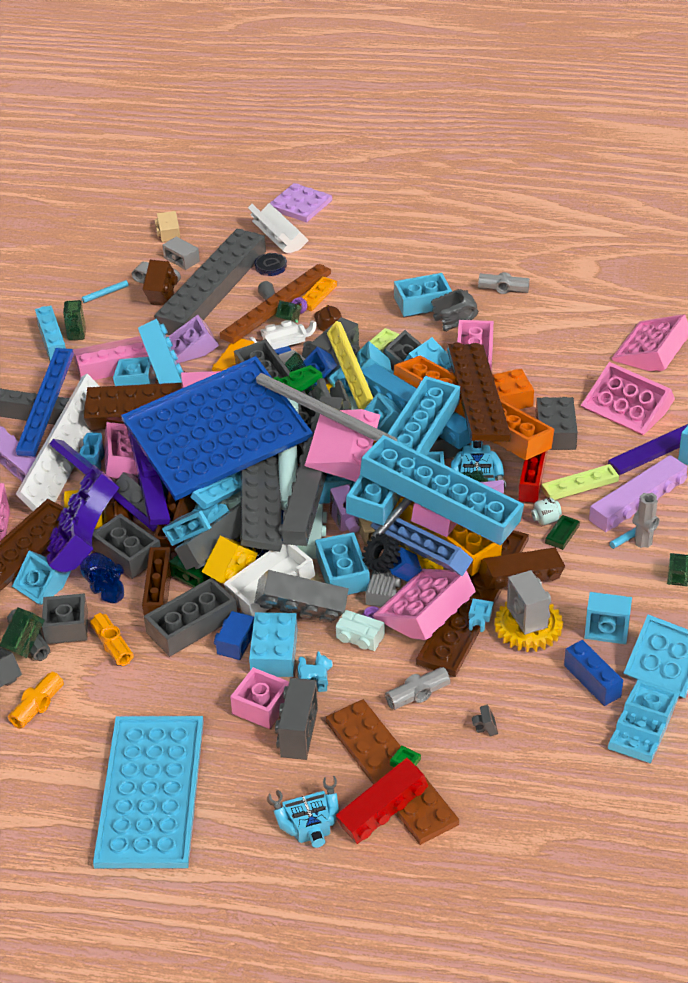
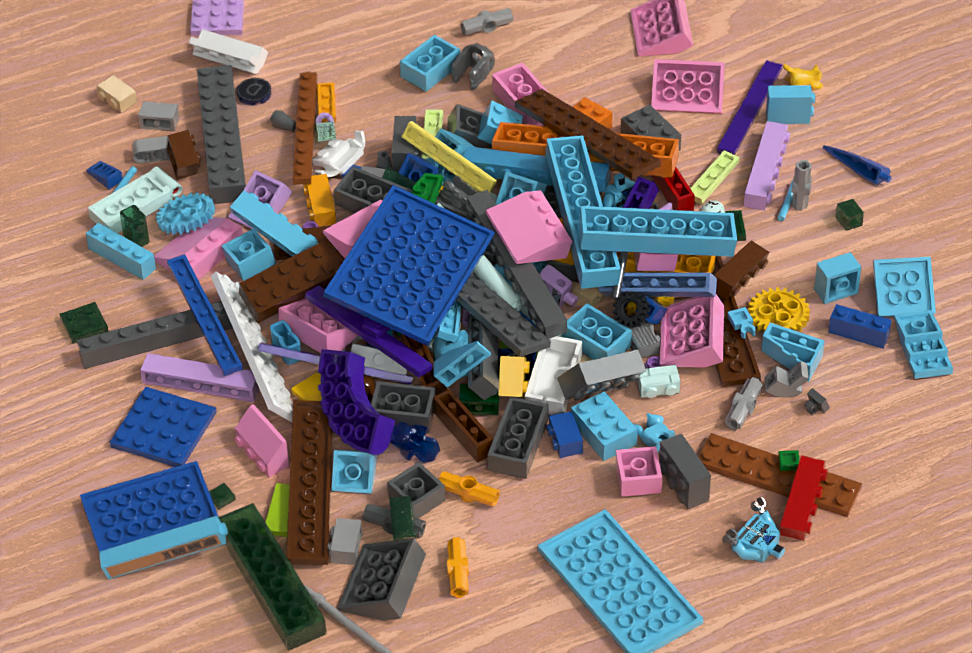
camera: 35 degrees left, 5 degrees up
(102, 278) = (108, 176): none -> blue slope
(104, 303) = (146, 192): none -> light aqua hinge
(121, 327) = (185, 213): none -> medium azure gear
(321, 408) = (497, 206): light grey axle -> none
(327, 317) = (362, 120): reddish brown piece -> none
(472, 688) = (785, 383): none -> light grey brick
(484, 466) = (642, 194): none -> dark purple slope
(507, 663) = (791, 347): none -> medium azure wedge
(528, 602) = (779, 293): light grey brick -> none

